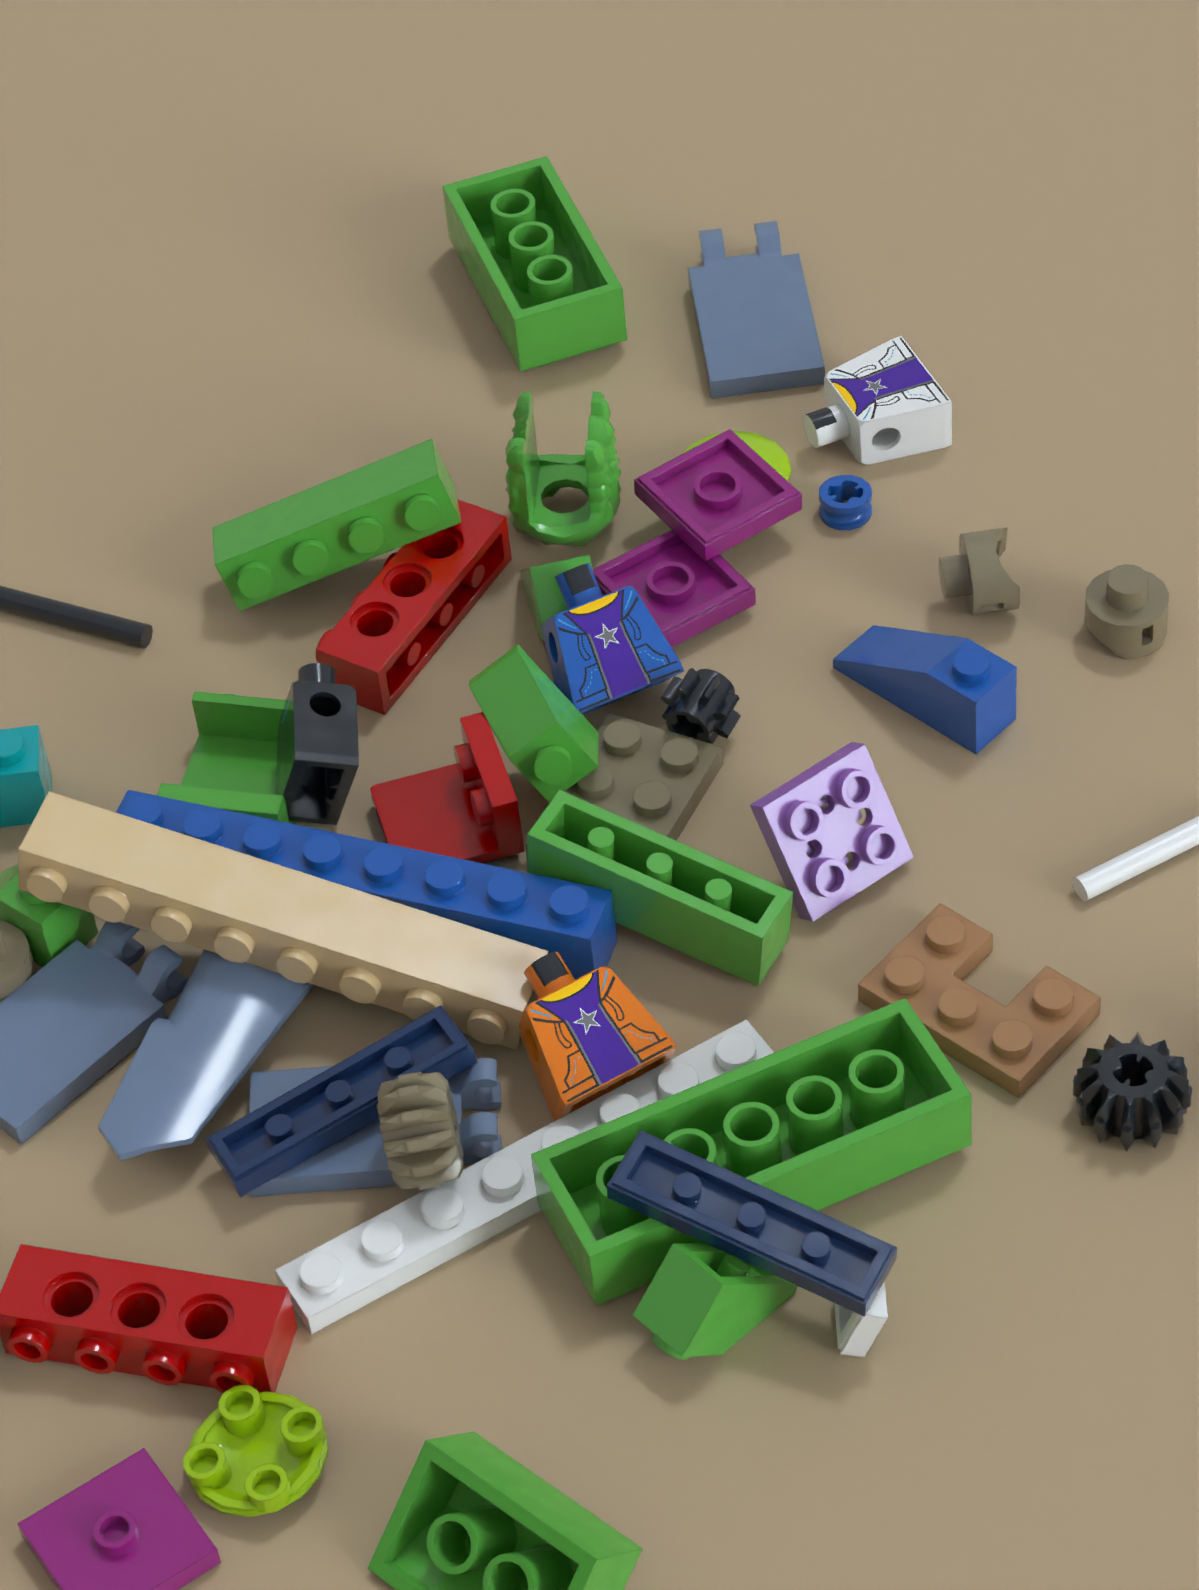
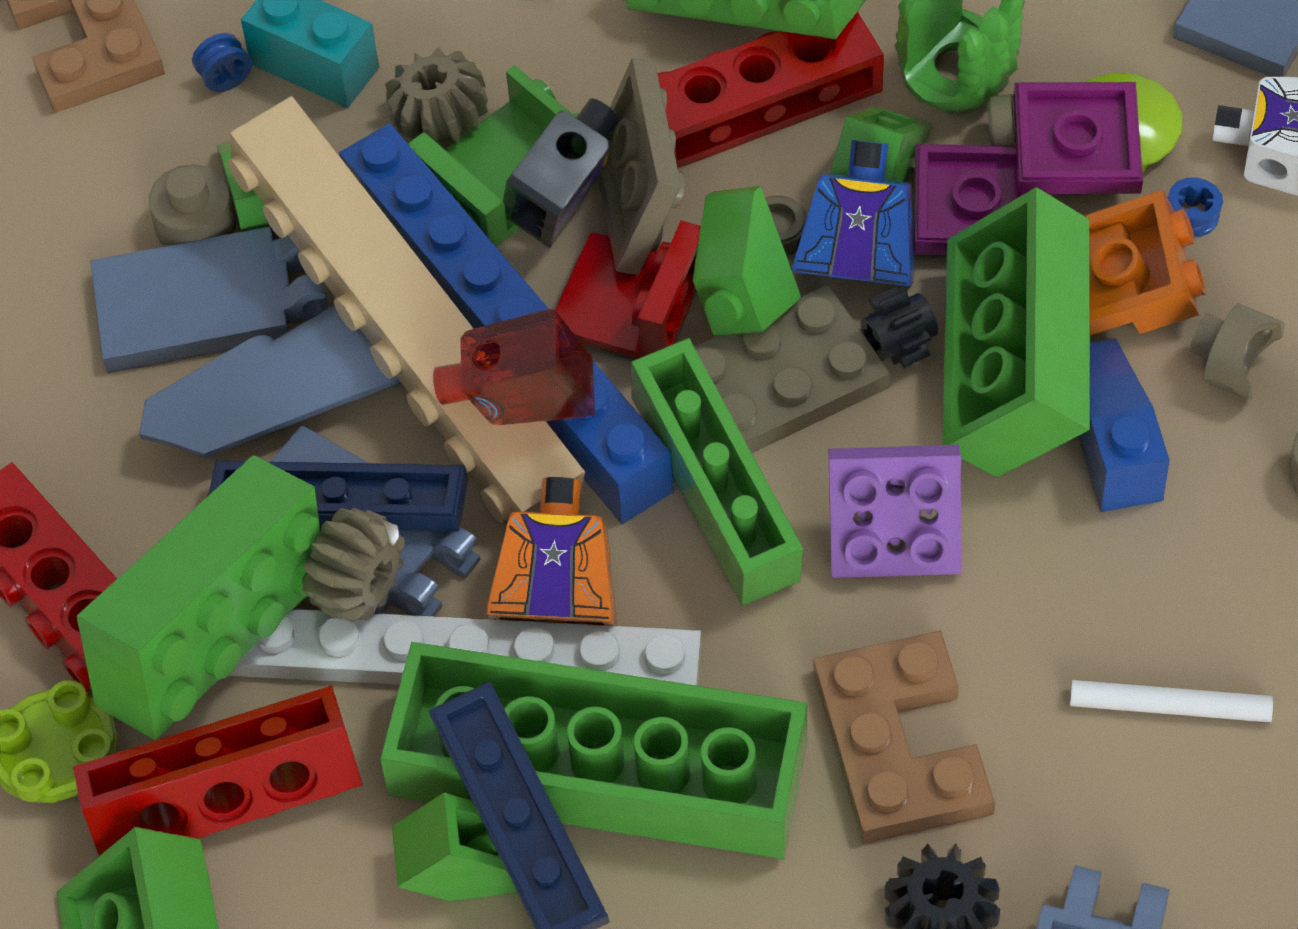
camera: 35 degrees right, 10 degrees up
(138, 755) = (436, 96): none -> dark tan gear
(321, 1227) = (200, 598): none -> bright green brick
(400, 701) = (641, 169): none -> dark tan plate
(444, 1368) = (221, 772): none -> red brick
(447, 886) = (521, 371): none -> clear red torso
(641, 518) = (1001, 120): none -> dark tan tile
(809, 645) = (1017, 333): none -> bright green brick
(840, 565) = (1141, 265): none -> orange plate

